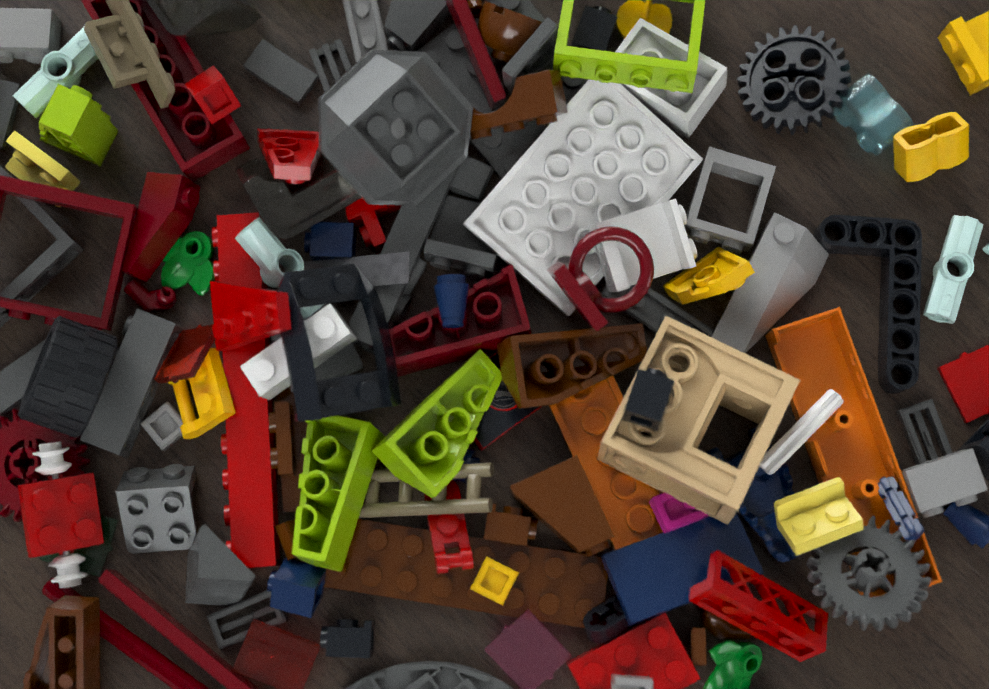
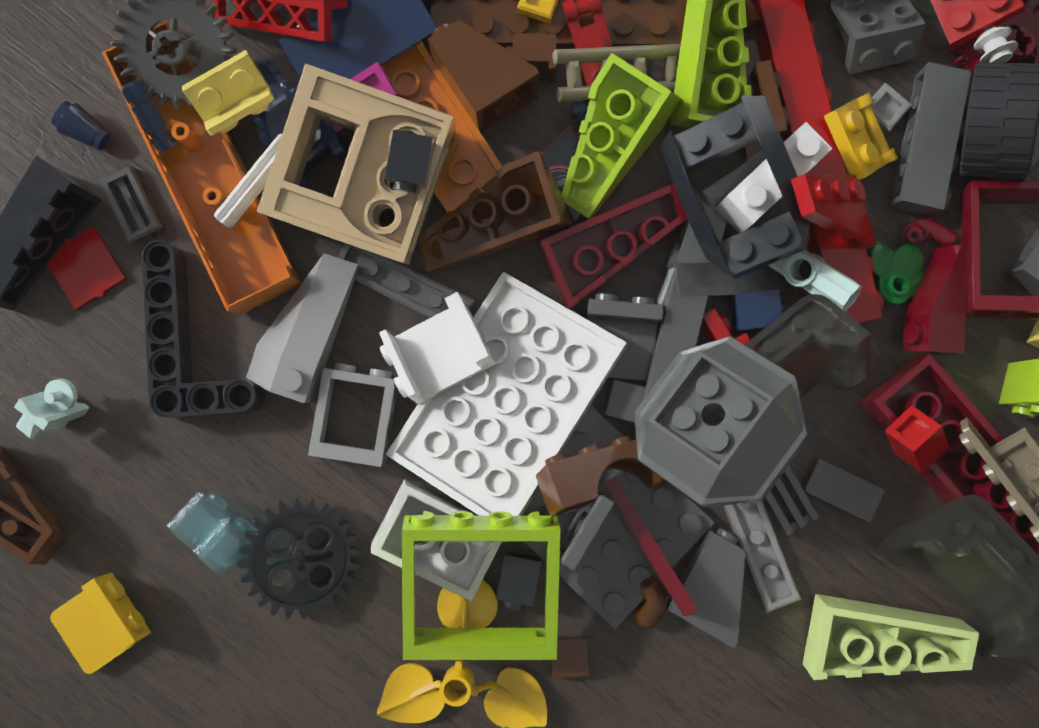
camera: 170 degrees right, 5 degrees up
(186, 354) = (883, 170): clear red piece -> none
(290, 153) = (823, 389): red wing -> none
(451, 298) = (626, 255): dark blue cone -> none
(505, 30) = (612, 562): reddish brown cylinder -> none
(581, 289) = (494, 283): dark red tile -> none
(714, 275) = (357, 326): yellow plate -> none
(931, 146) = (142, 504): yellow brick -> none
(943, 481) = (108, 153): light grey brick -> none
(960, 250) = (112, 401): light aqua piece -> none

